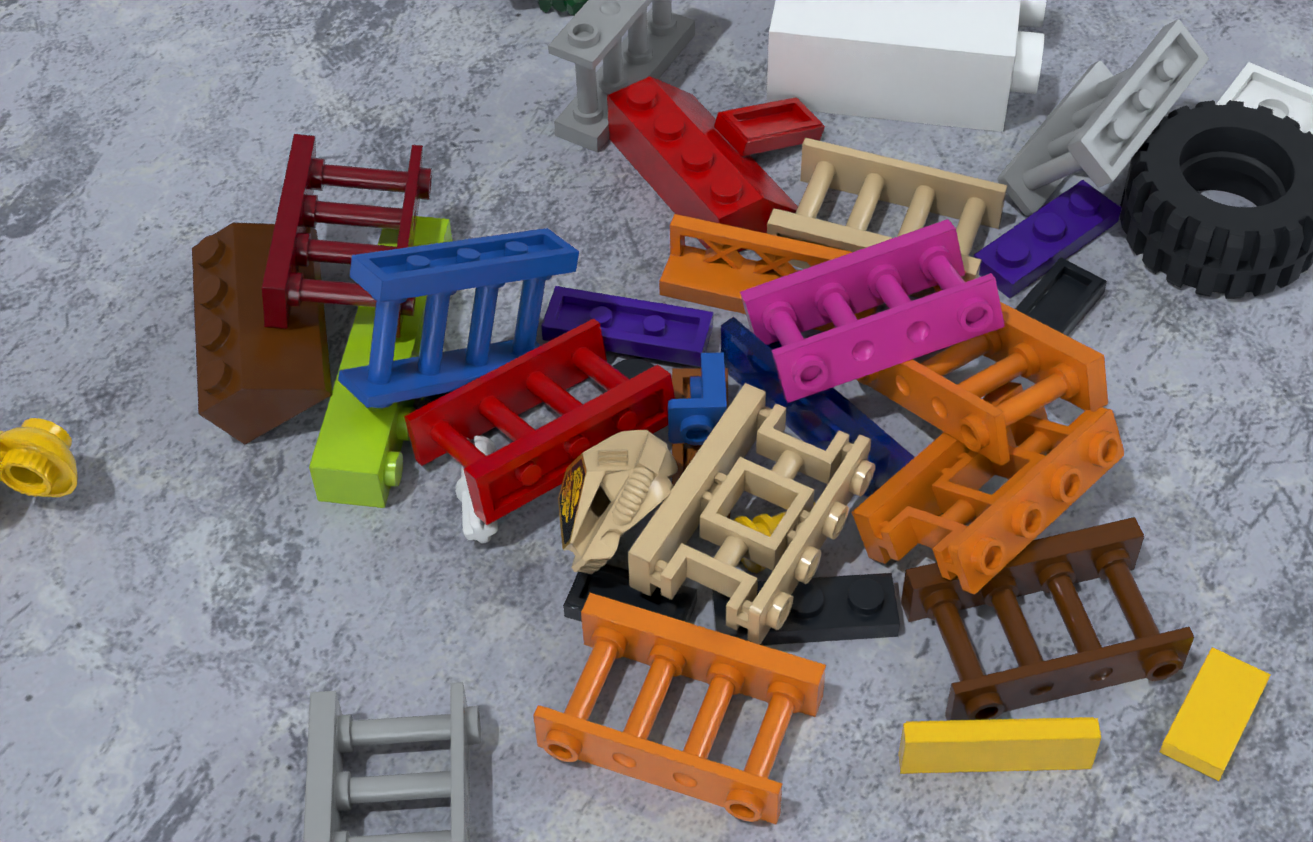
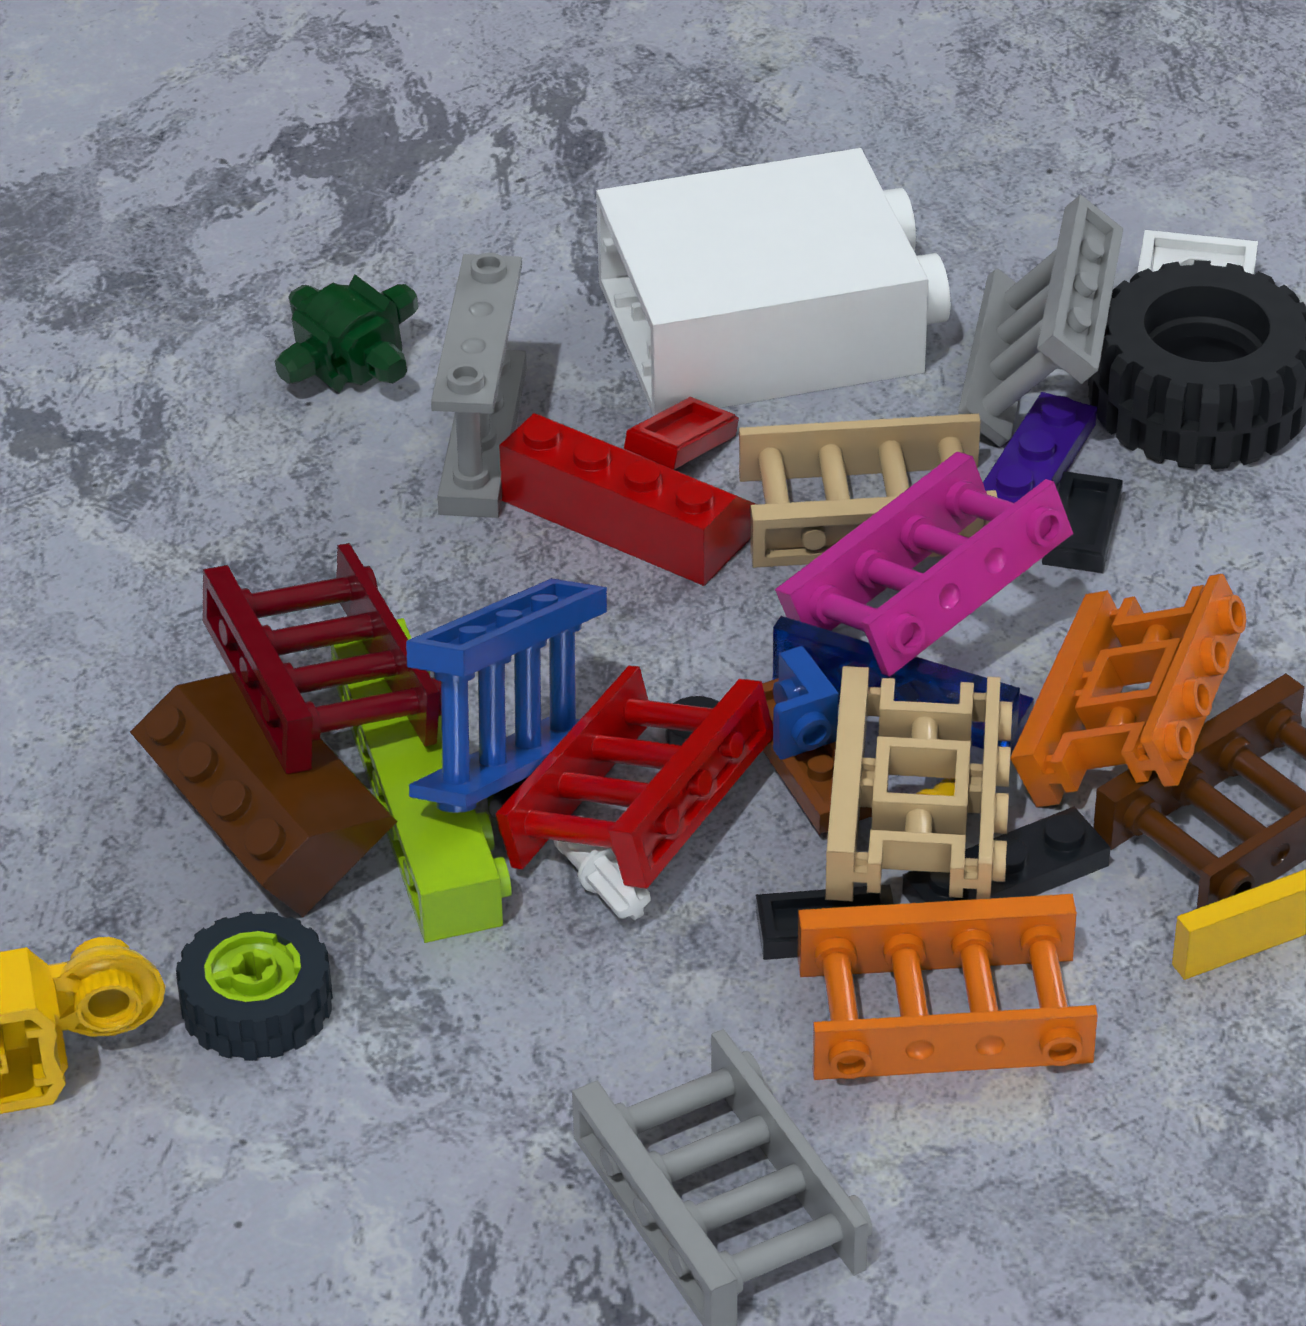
camera: 25 degrees left, 10 degrees down
(186, 501) = (254, 985): none -> black wheel
(610, 493) = (766, 814): tan helmet -> none
(632, 324) = (668, 665): dark purple plate -> none
(720, 273) = (733, 598): orange fence -> none
(1022, 349) = (1074, 626): orange fence -> none

